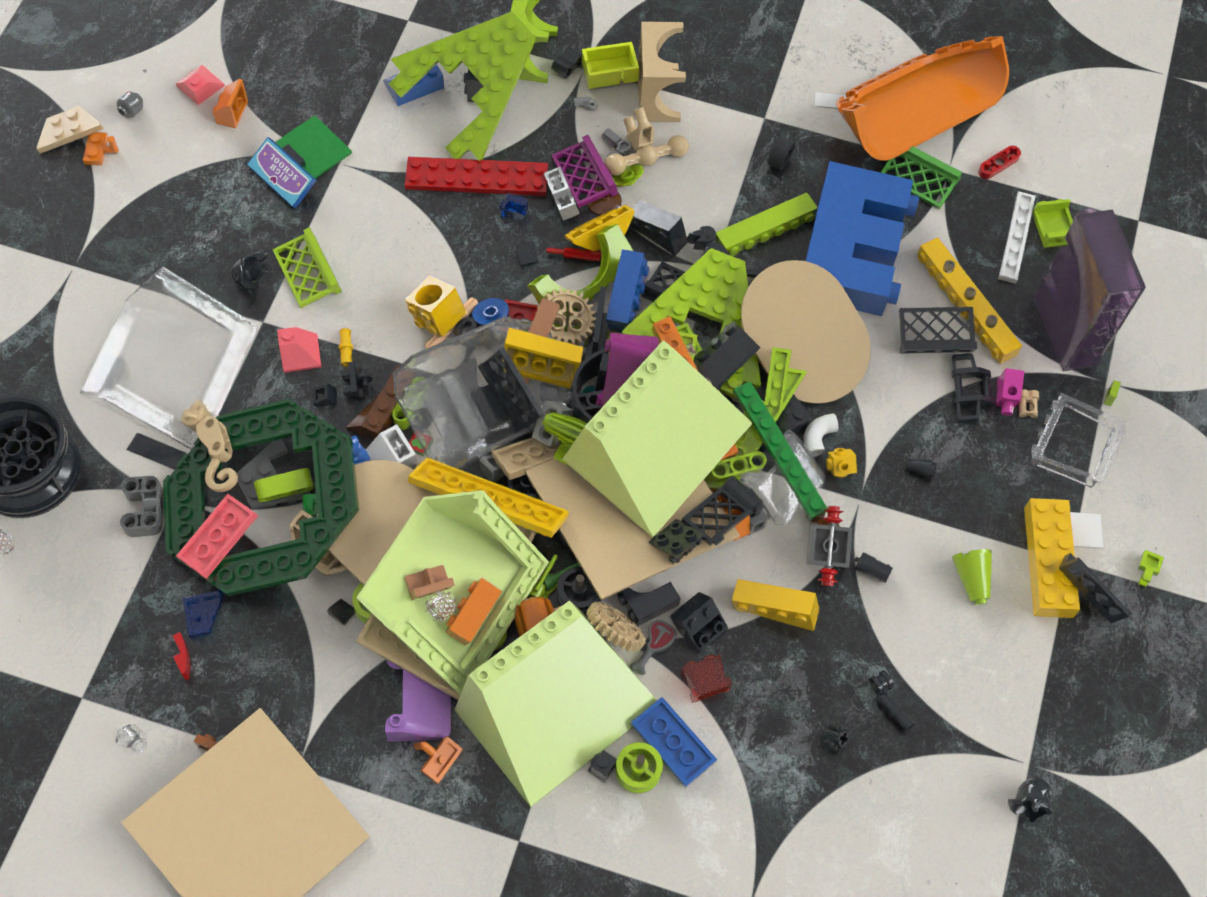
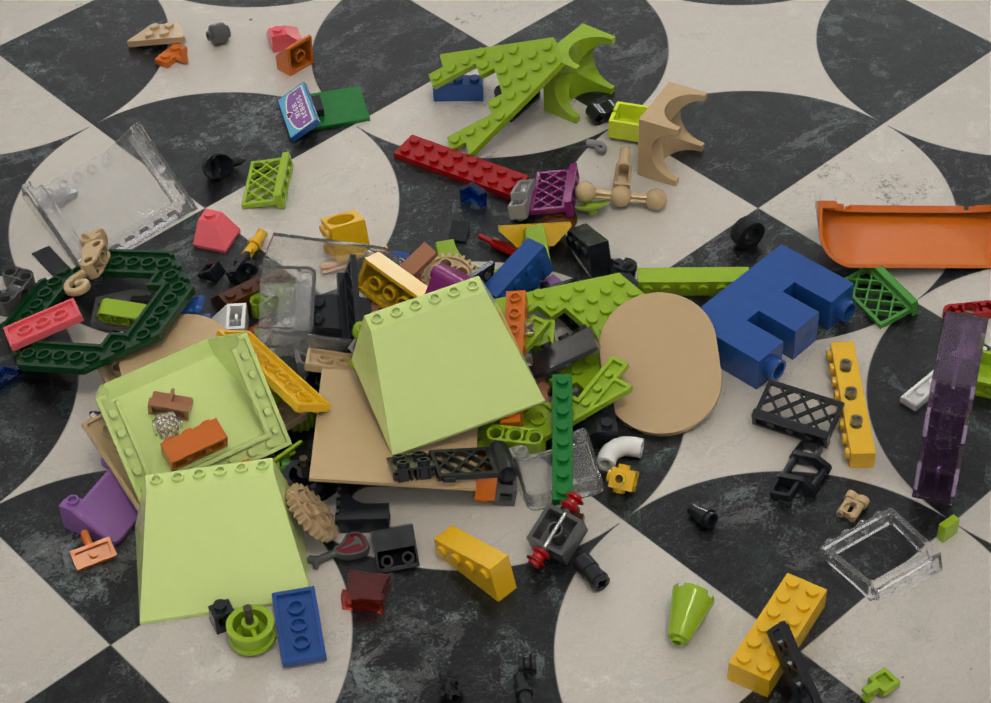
camera: 35 degrees right, 20 degrees down
(621, 146) = (601, 178): flat silver bar -> none
(1009, 390) = (835, 483): dark pink torso -> none
(1087, 530) = (835, 630): white sticker -> none

